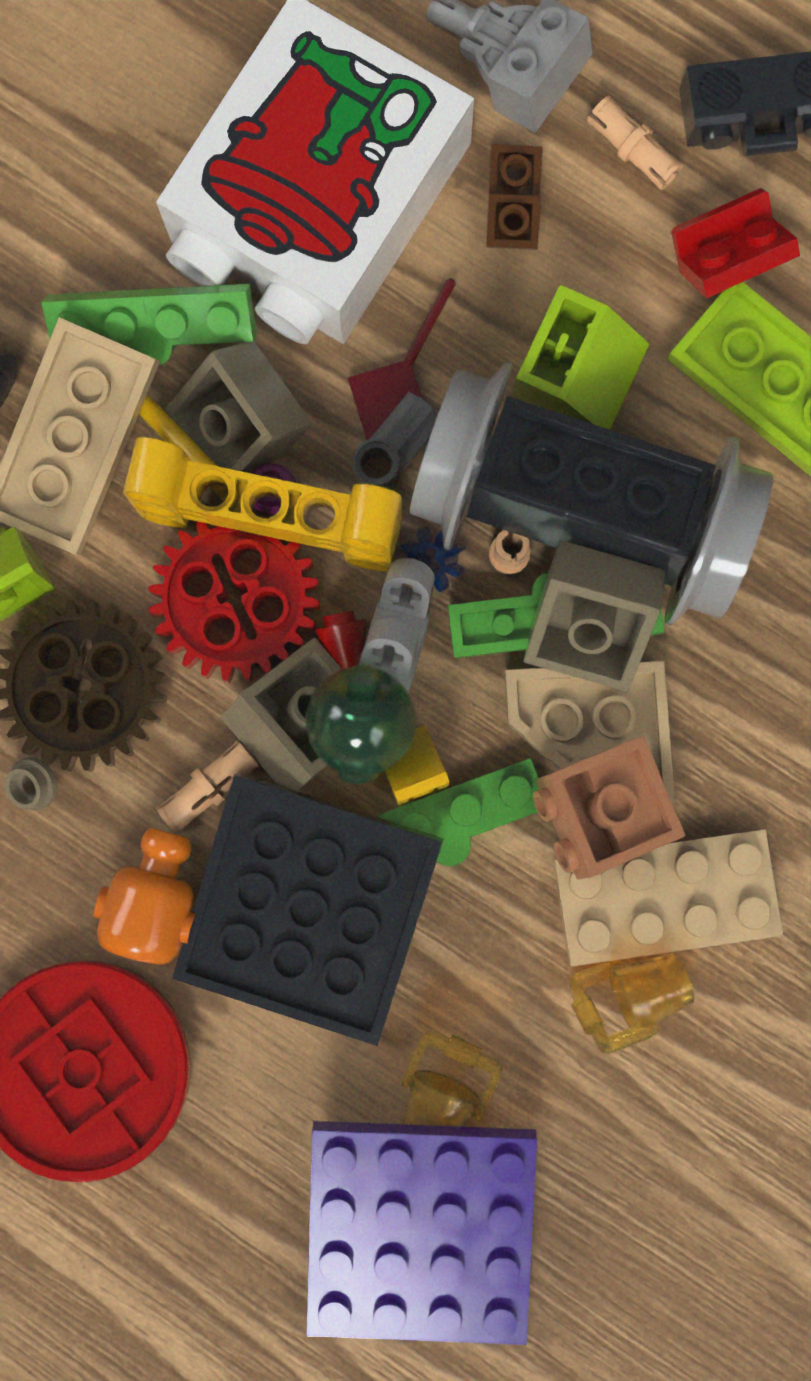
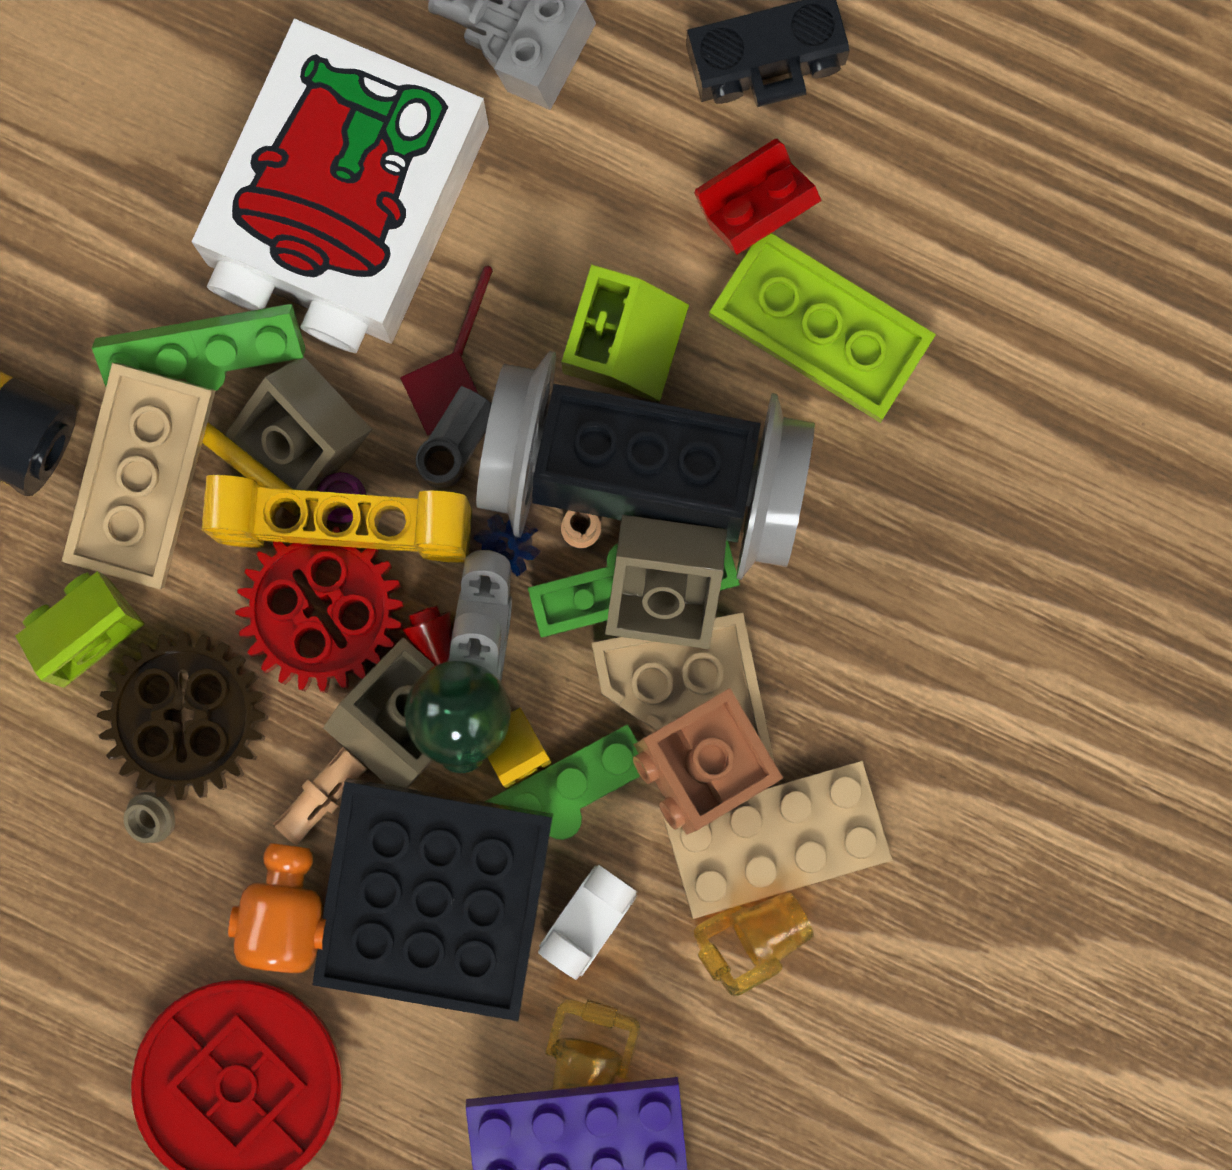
camera: 10 degrees left, 0 degrees up
(462, 954) = (587, 922): none -> white piece
(514, 197) = (538, 177): reddish brown slope -> none
(634, 142) = (648, 107): light nougat pin -> none

